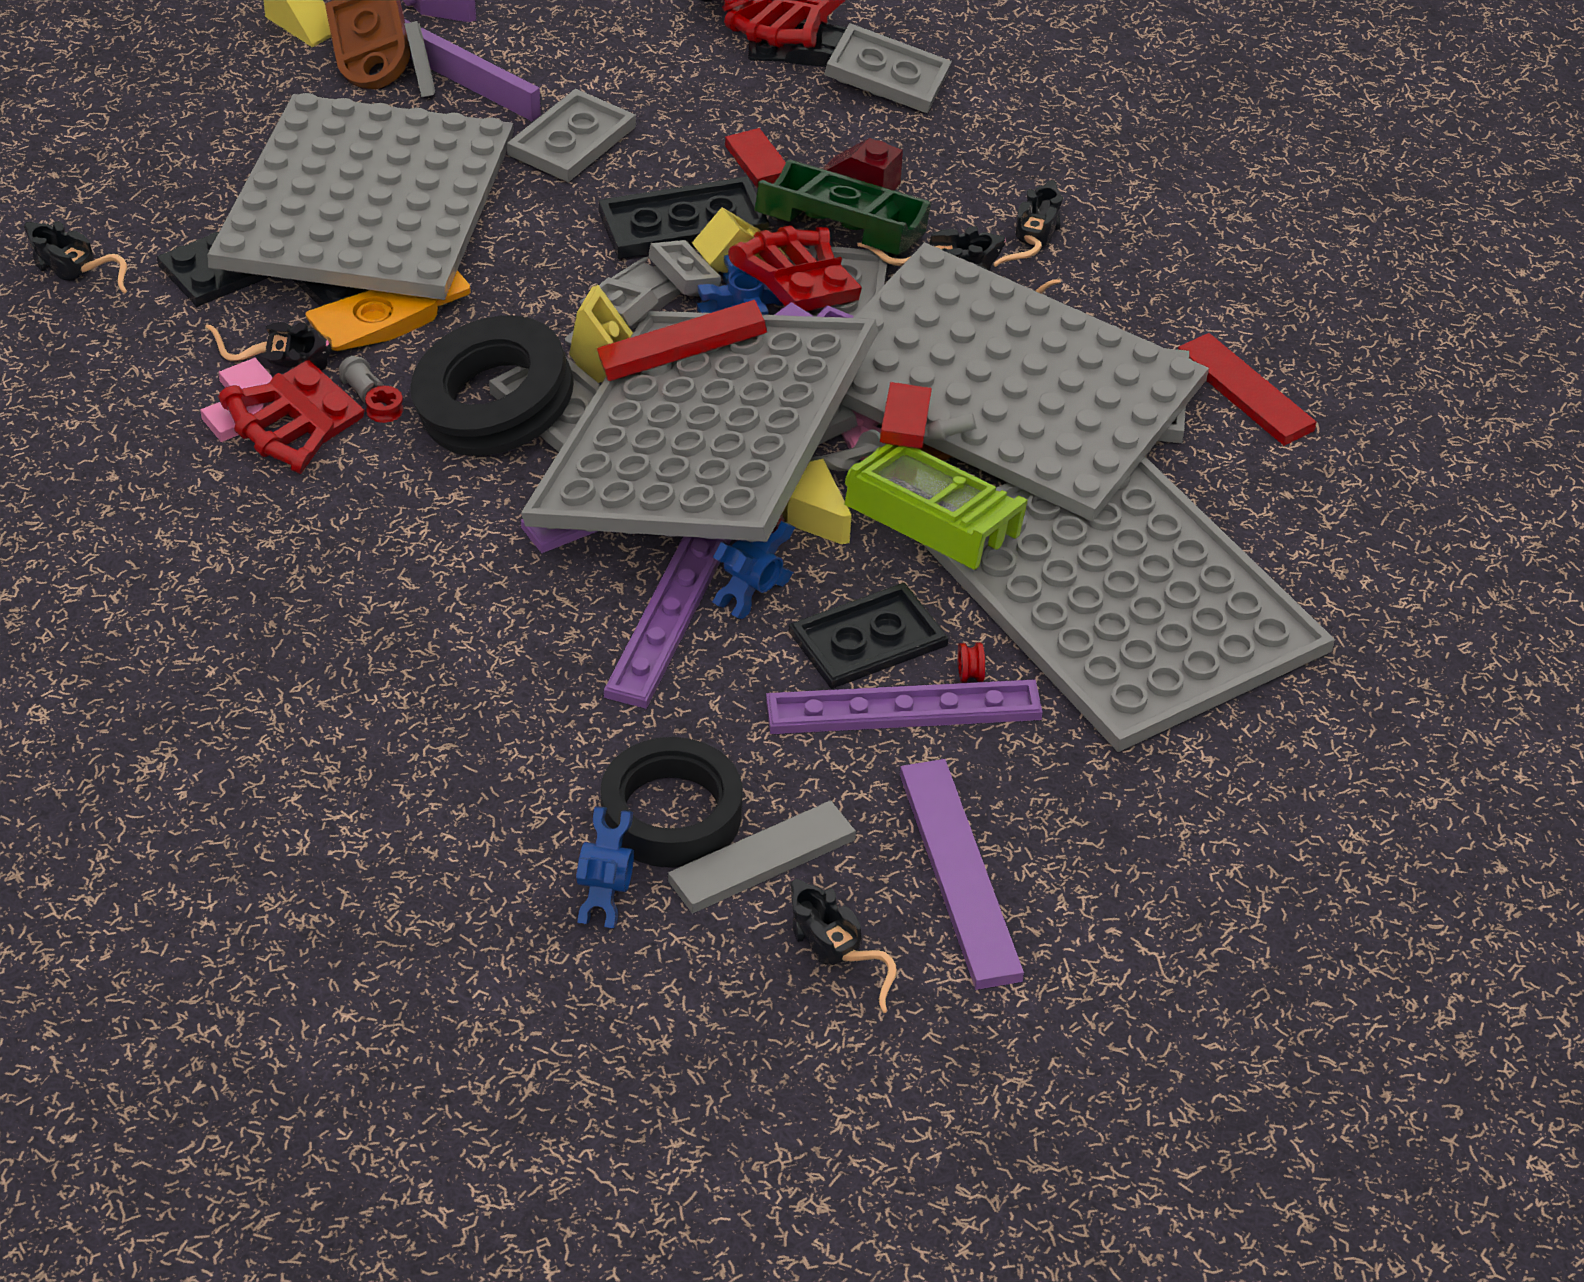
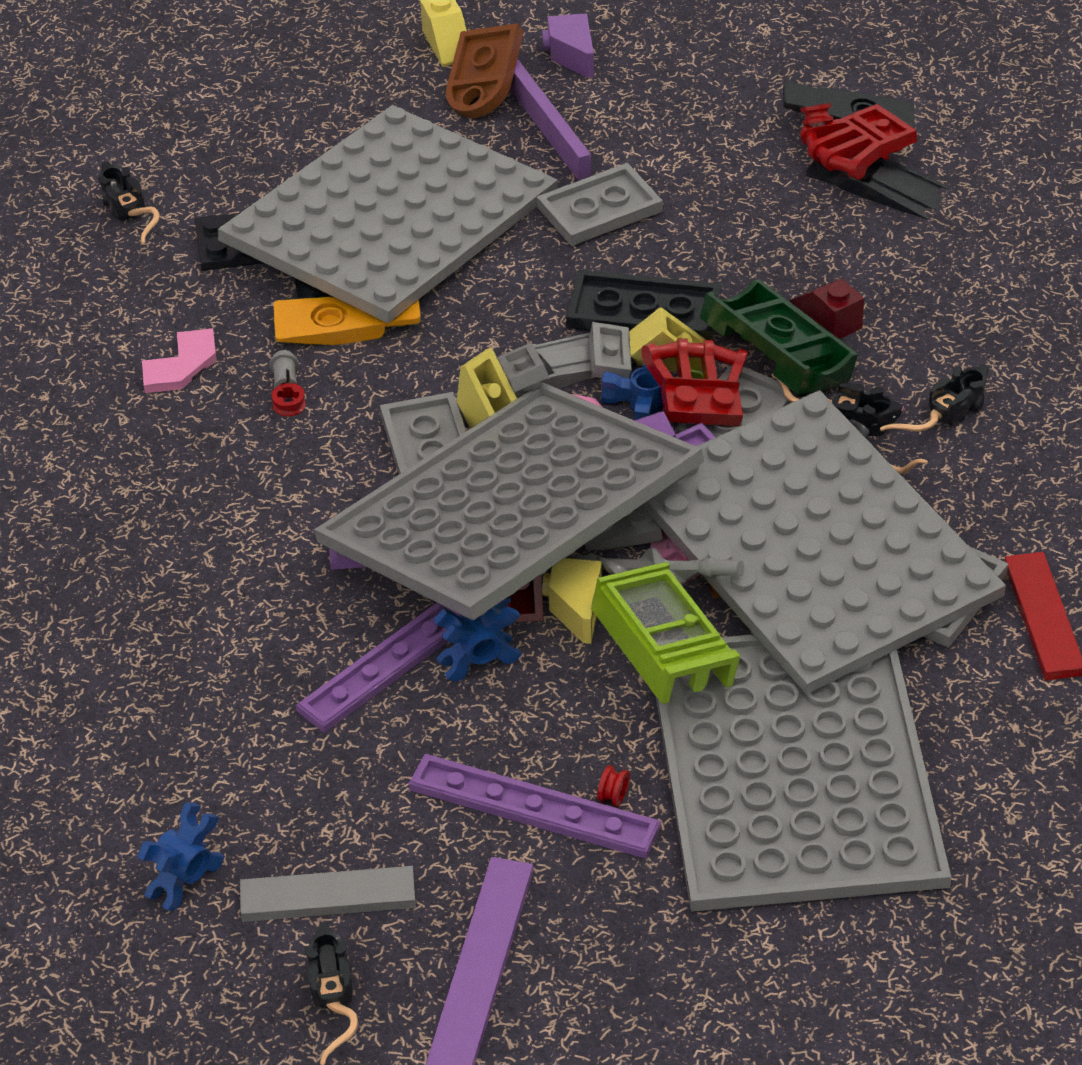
camera: 30 degrees right, 0 degrees up
(285, 346) = (239, 327): black animal -> none
(303, 394) = (226, 371): red plate -> none
(420, 59) = (511, 102): light grey tile -> none
(503, 422) = (383, 440): black tyre -> none
(674, 759) = (271, 781): black tyre -> none
(681, 340) = (540, 418): red tile -> none
(755, 155) = (747, 264): red tile -> none
(868, 635) = (548, 731): black tile -> none
(887, 68) = (916, 216): light grey plate -> none
(905, 415) = (682, 544): red tile -> none

